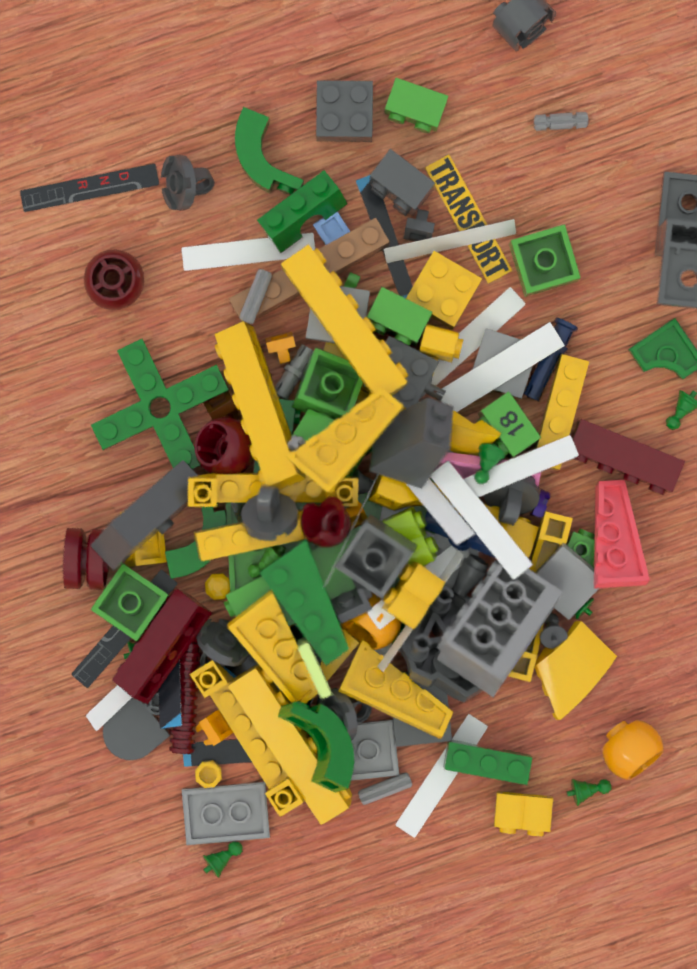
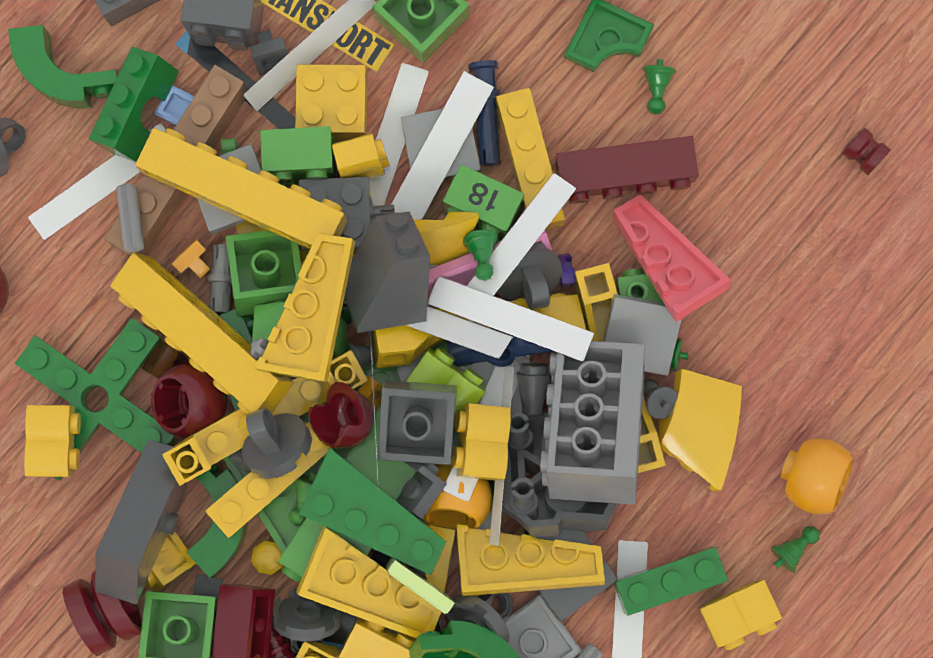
camera: 25 degrees left, 5 degrees down
(114, 422) = (51, 441): none -> yellow brick

